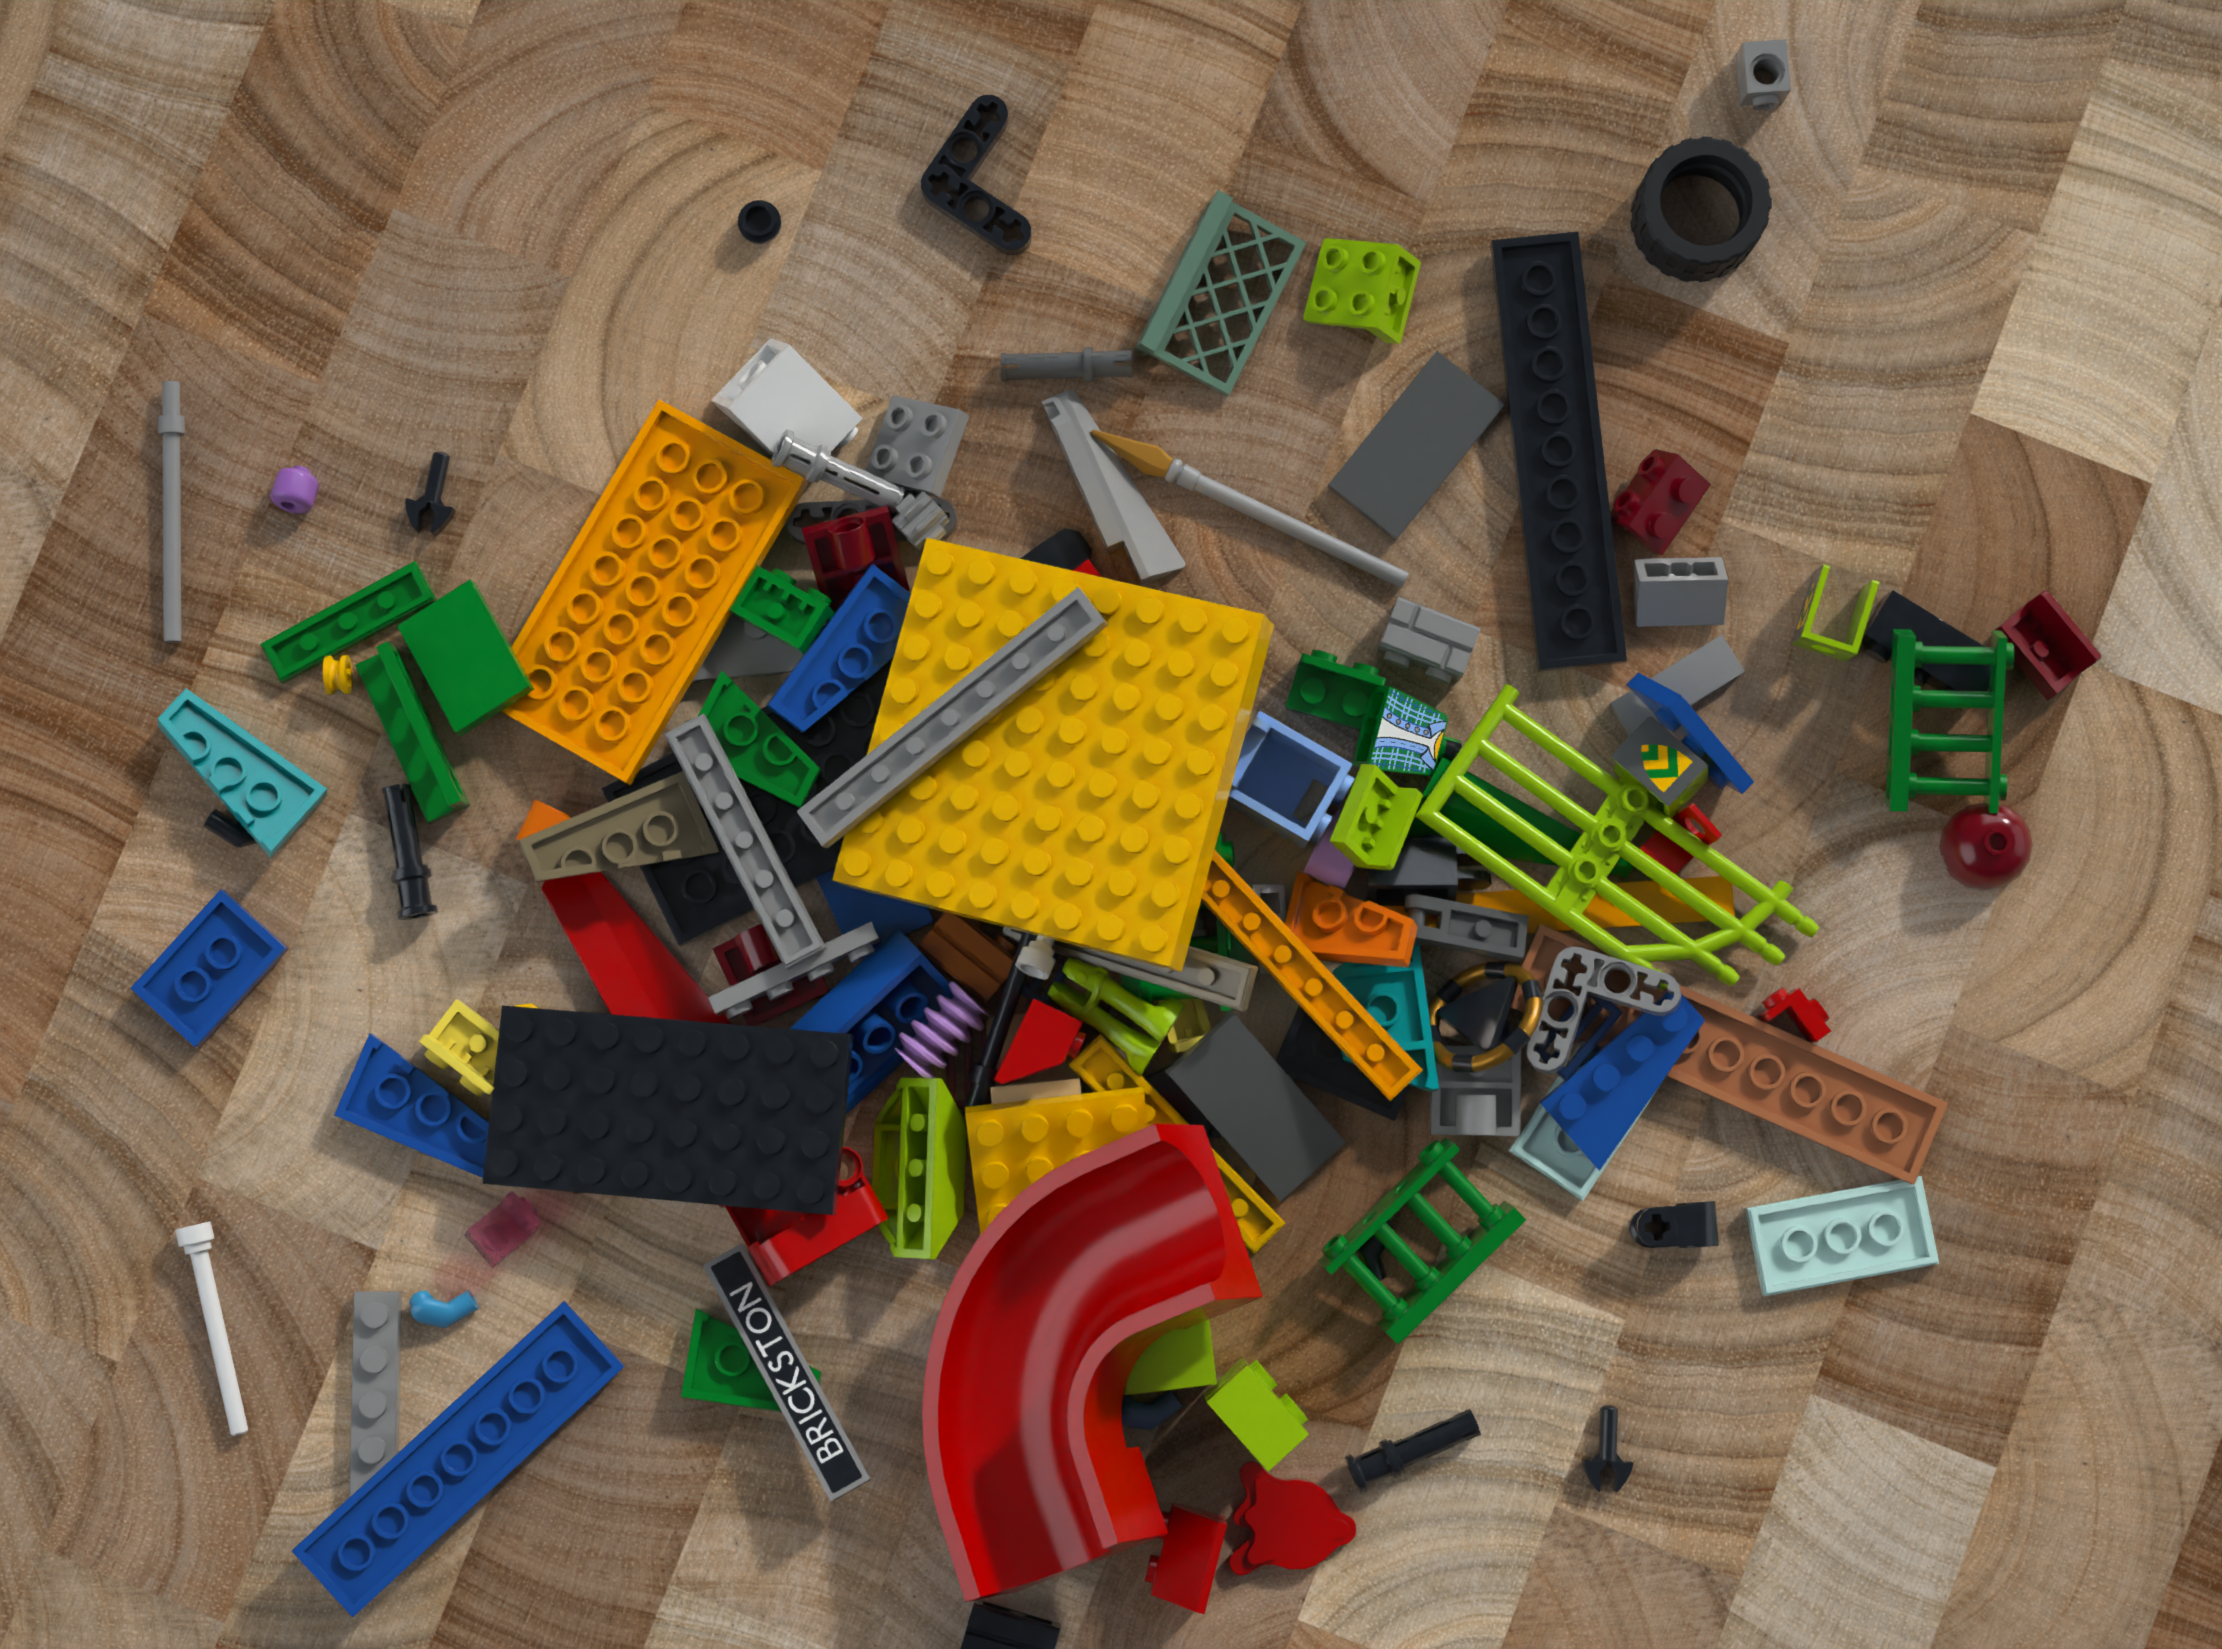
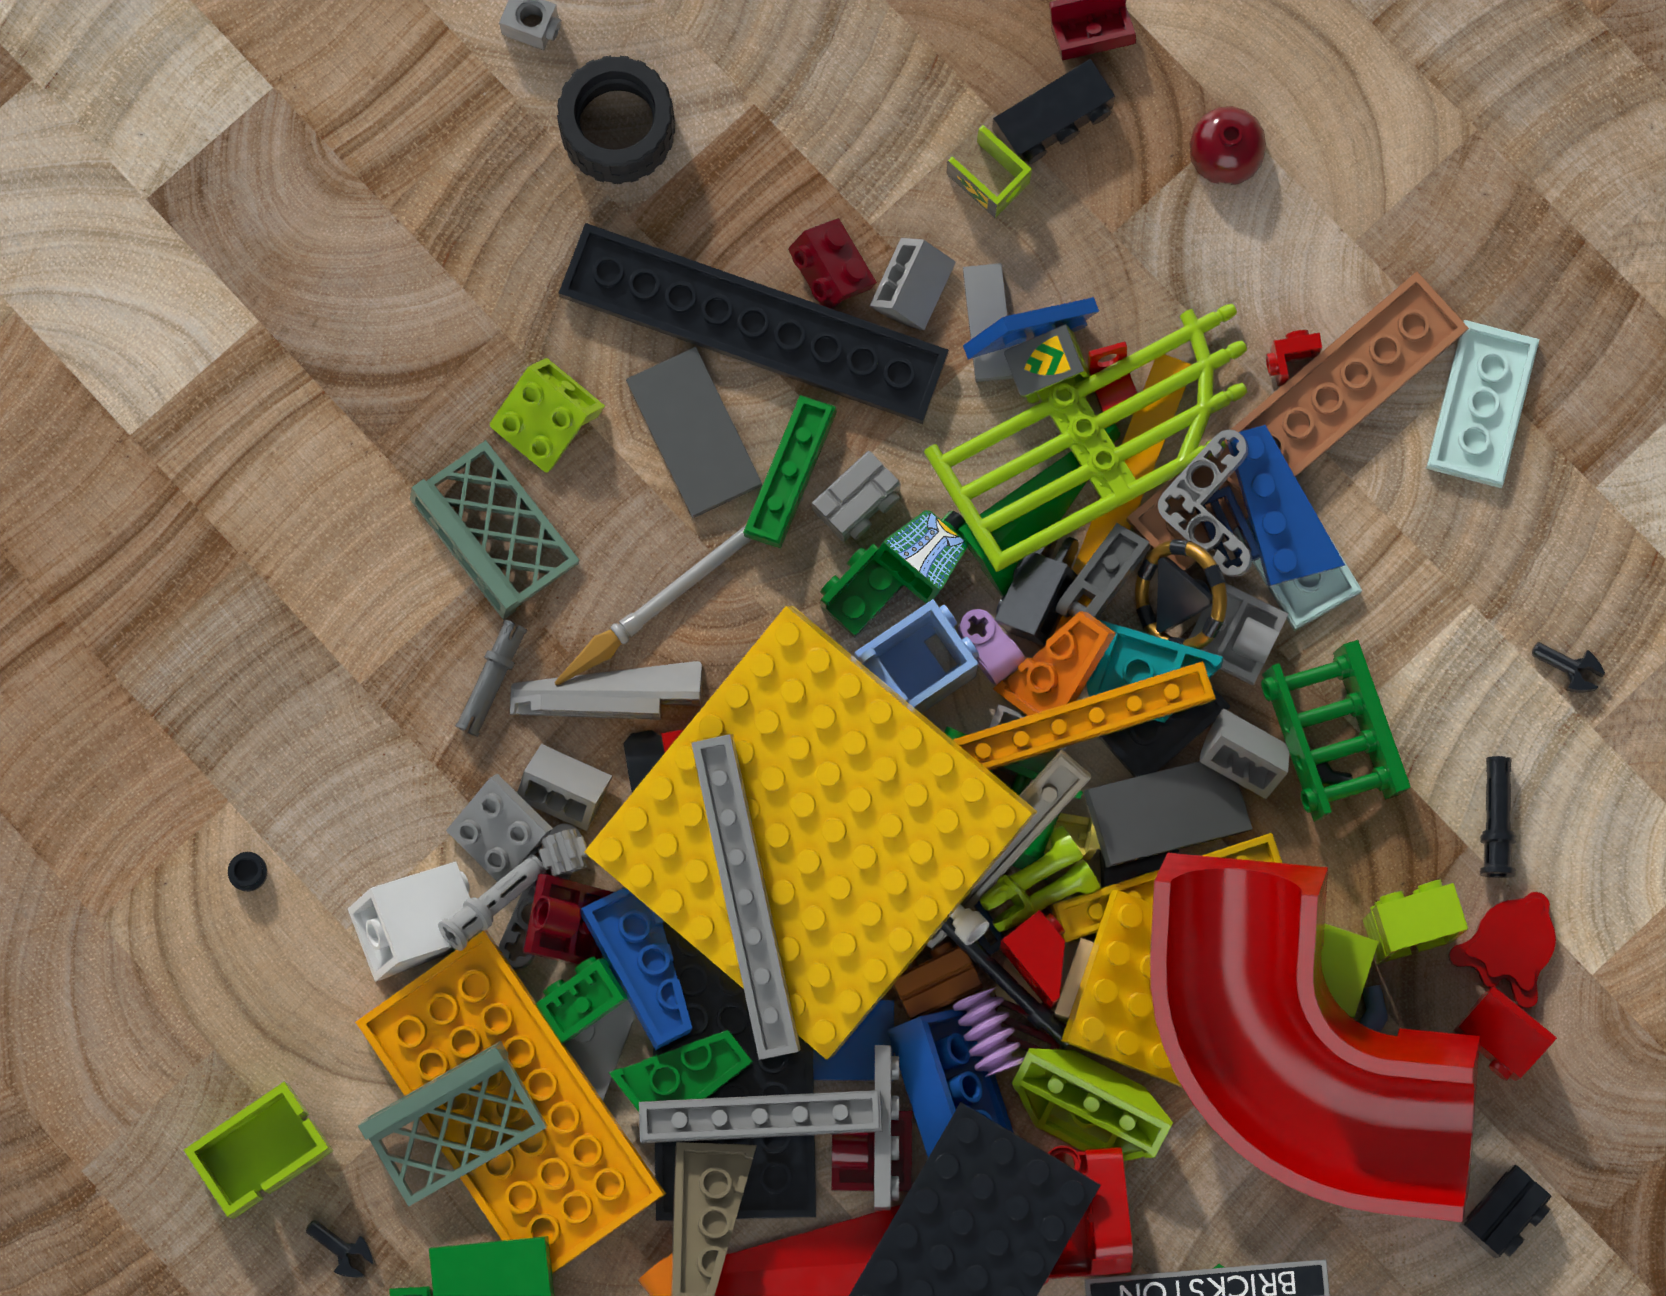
camera: 65 degrees left, 5 degrees down
(486, 365) = (258, 1150): none -> lime piece
(612, 506) = (436, 1093): none -> sand green fence
(960, 175) = (289, 689): black beam -> none
(991, 489) = (563, 787): none -> light grey brick
(1352, 1159) = (1245, 754): none -> light grey brick
(1375, 819) = (985, 603): lime bracket -> none
(1422, 560) = (790, 471): none -> green tile
(1682, 1226) = (1417, 523): black piece -> none
(1909, 698) = (1085, 147): green fence -> none

